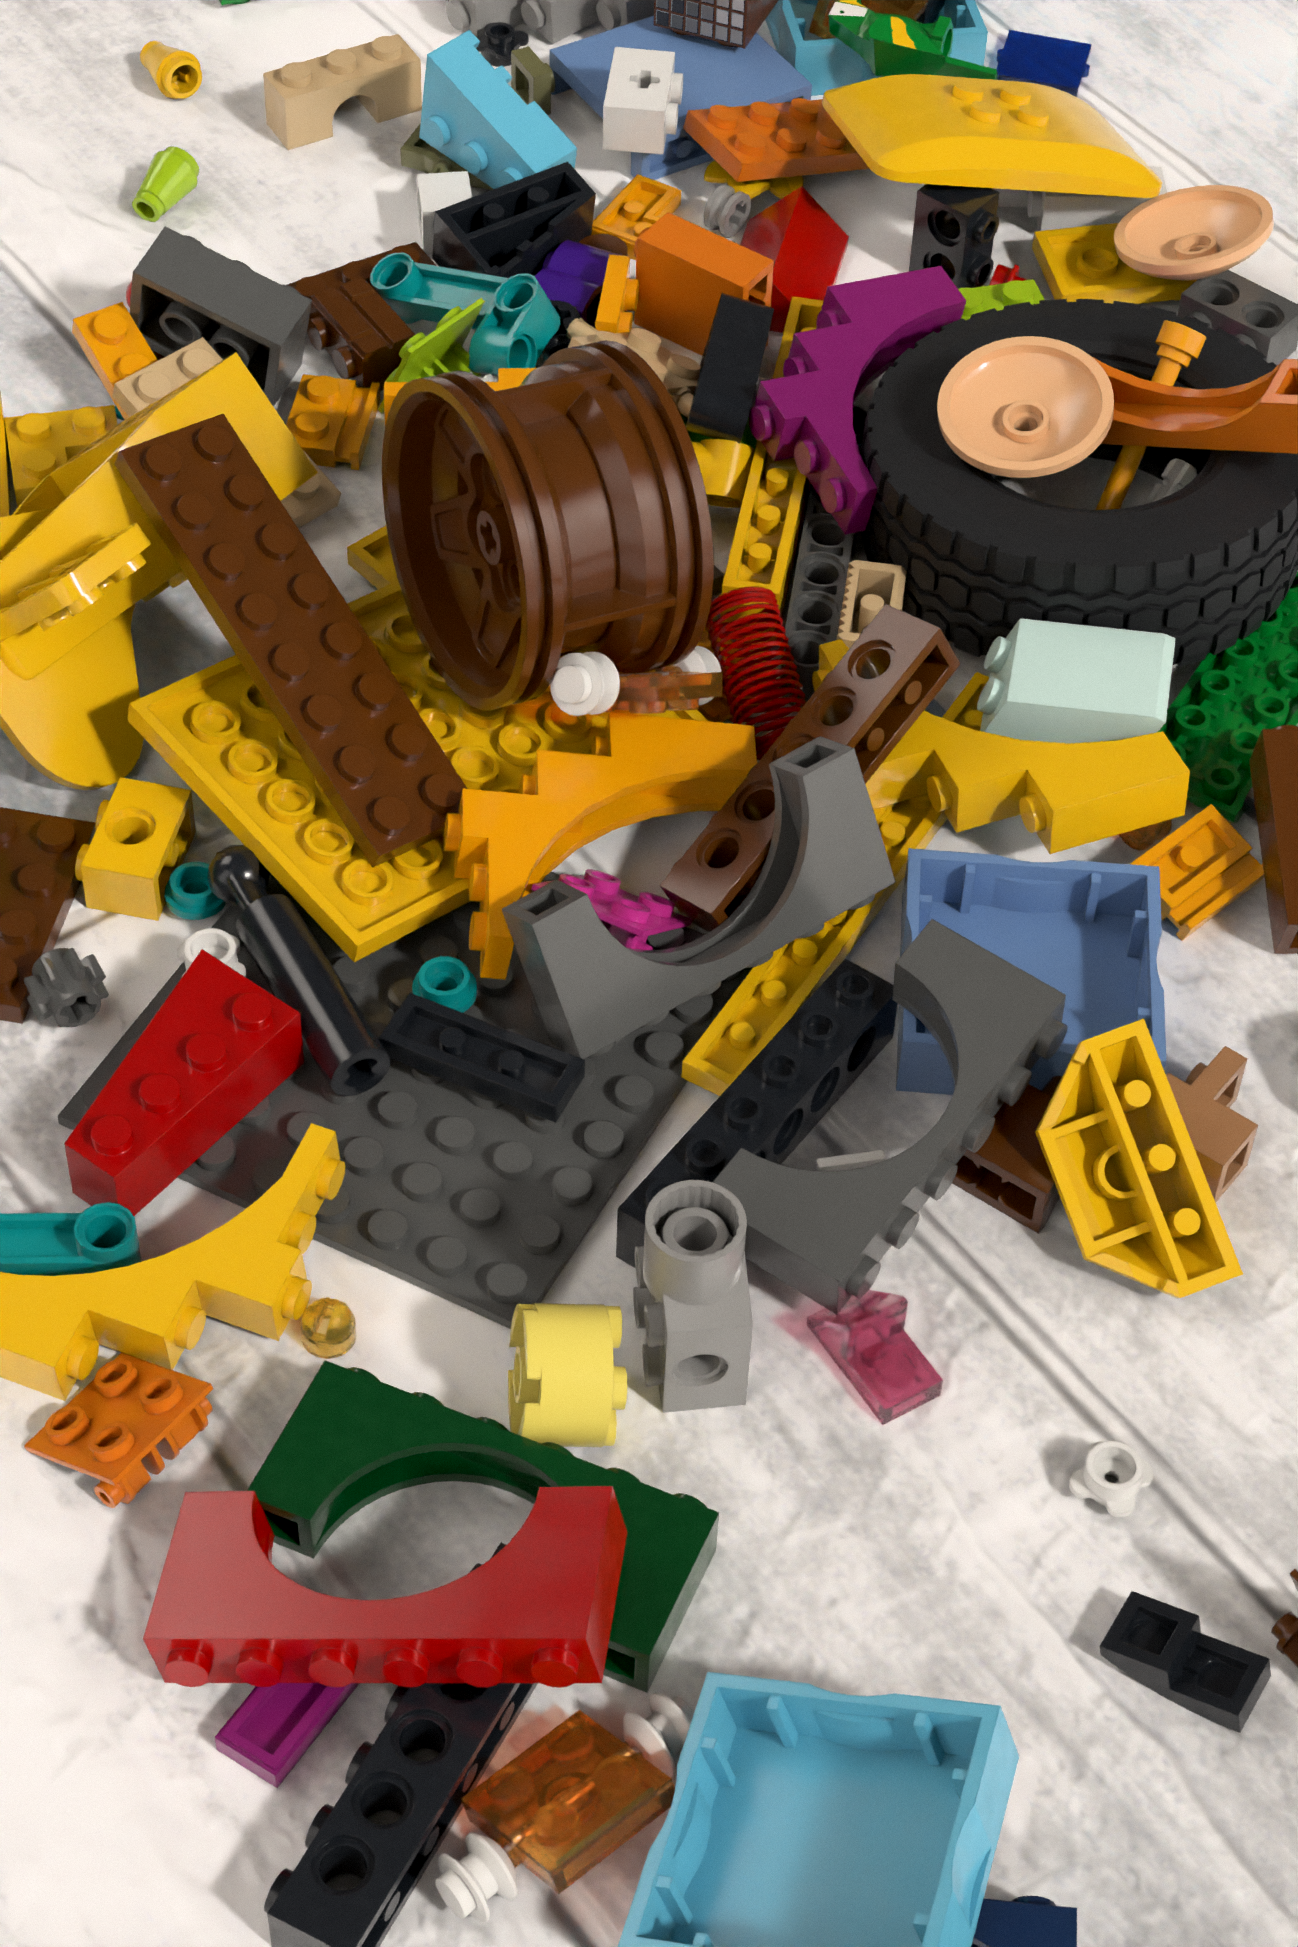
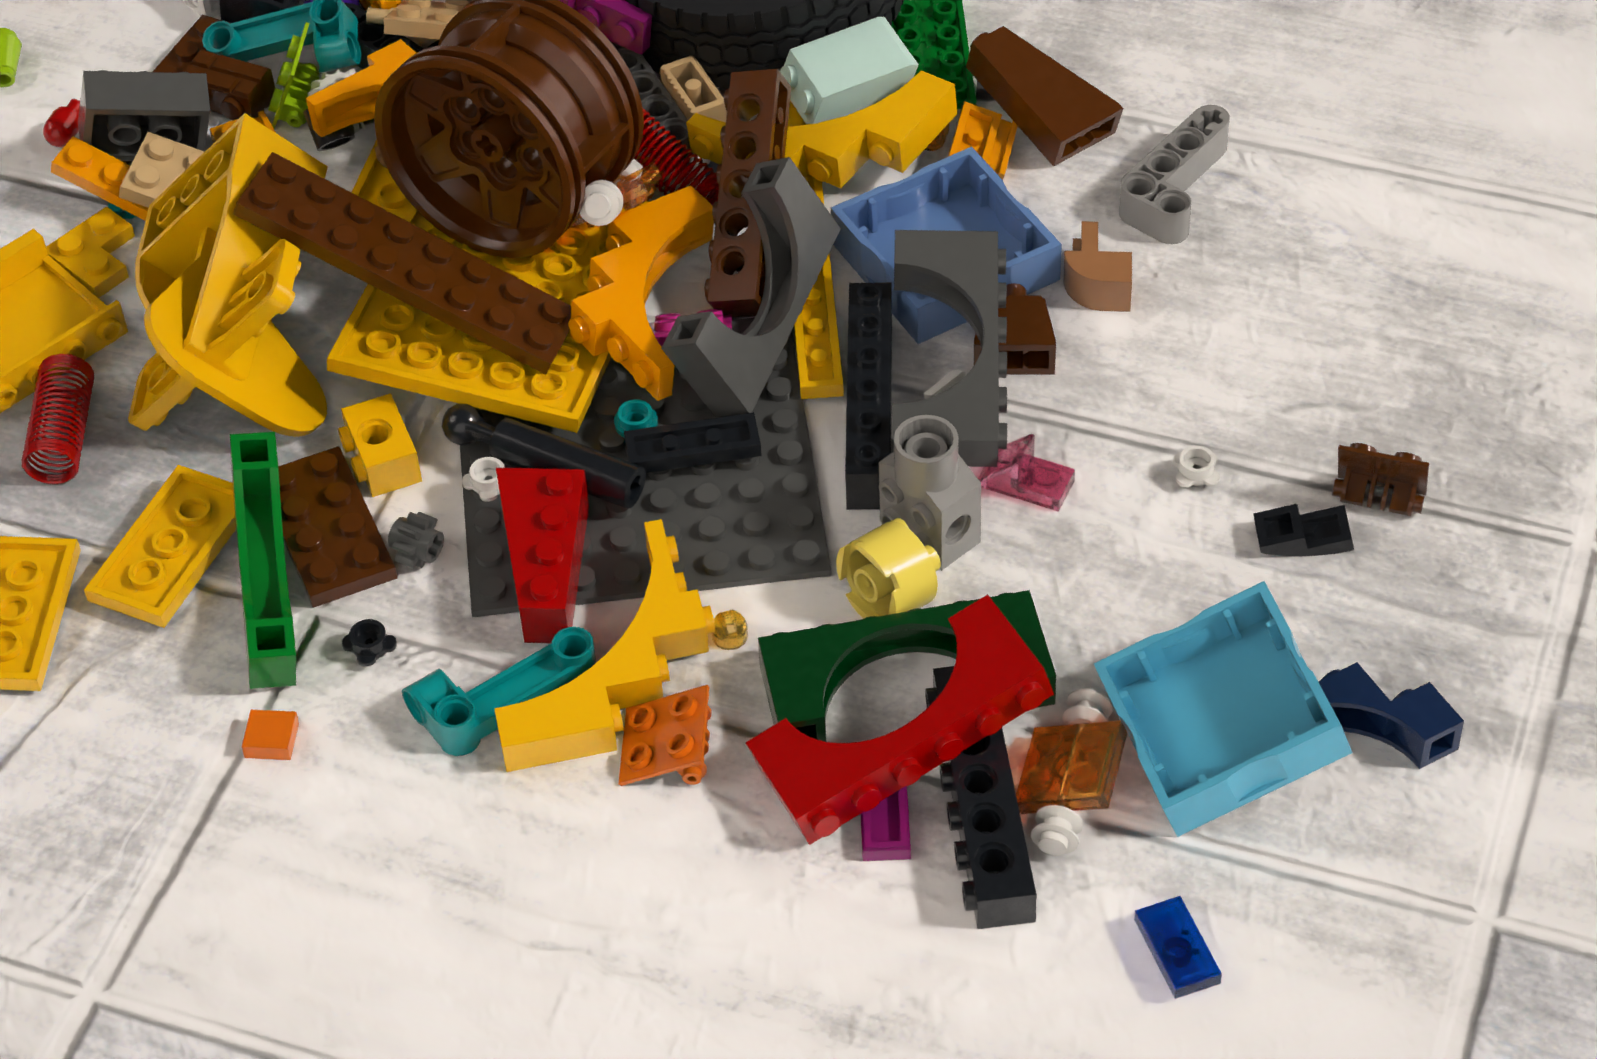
camera: 30 degrees left, 0 degrees up
(190, 894) = (435, 451): teal plate -> none
(1132, 1168) = (1092, 306): yellow wedge -> none

